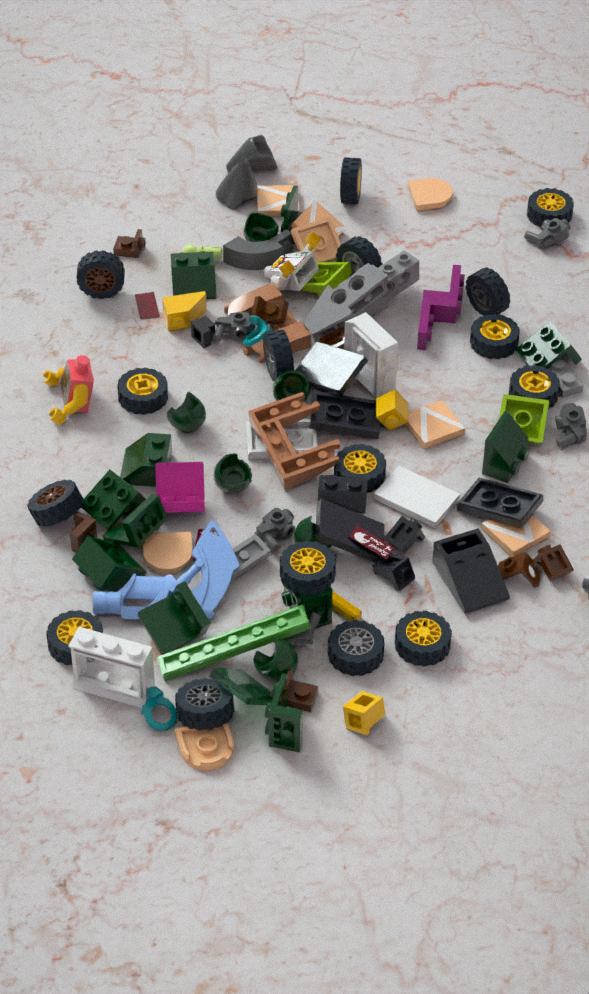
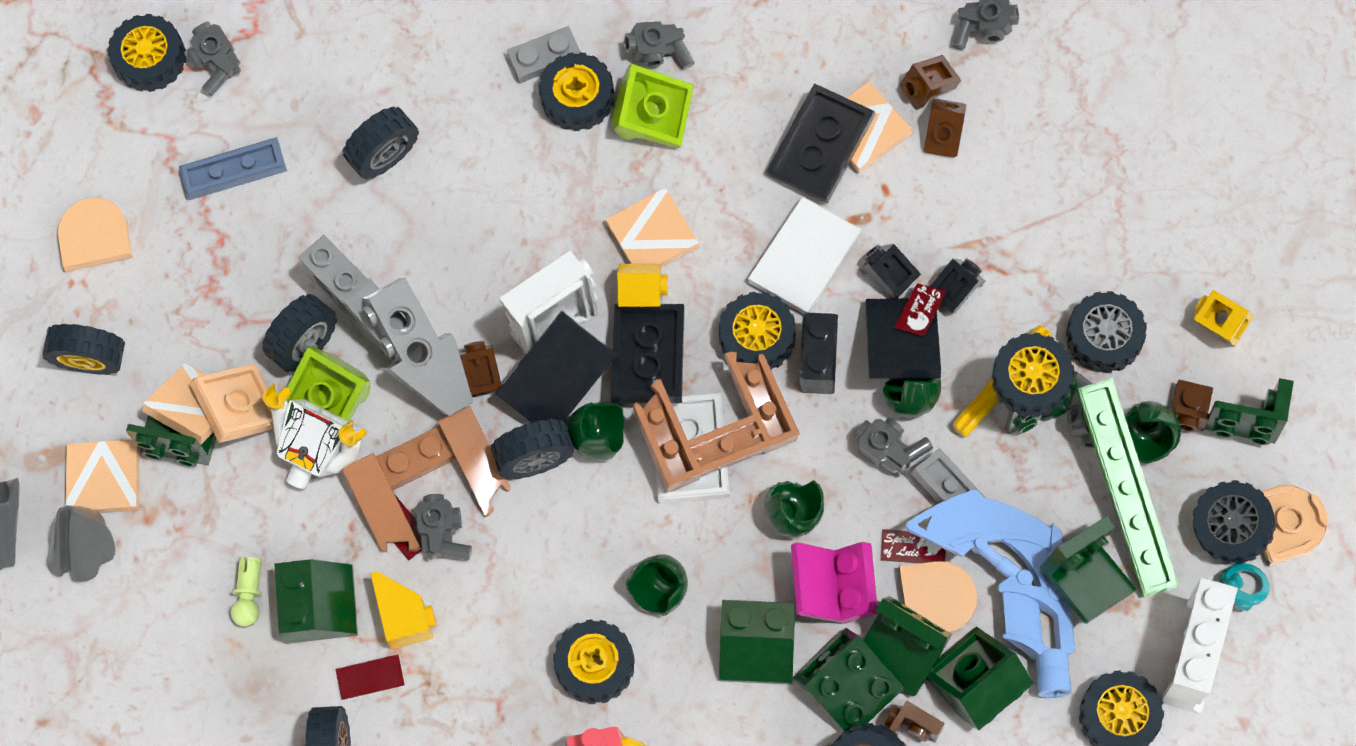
camera: 85 degrees left, 25 degrees up
(130, 246) = (220, 716): reddish brown bracket -> none
(202, 331) = (451, 576): black piece -> none
(242, 685) = (1204, 470): clear green tile -> none
(256, 255) = (260, 507): dark grey arch -> none
(257, 334) = (449, 487): teal piece -> none
(260, 227) = (205, 492): dark green hair -> none
(270, 311) = (415, 468): reddish brown bracket -> none
(424, 626) = (1081, 246): black wheel -> none
(440, 307) = (392, 218): magenta bracket -> none
(470, 570) = (960, 183): black slope -> none
(475, 246) = (233, 168): none -> sand blue tile
(494, 336) = (460, 142): black wheel -> none
(505, 449) = (723, 132): dark green slope -> none
(547, 347) = (495, 70): bracket -> none

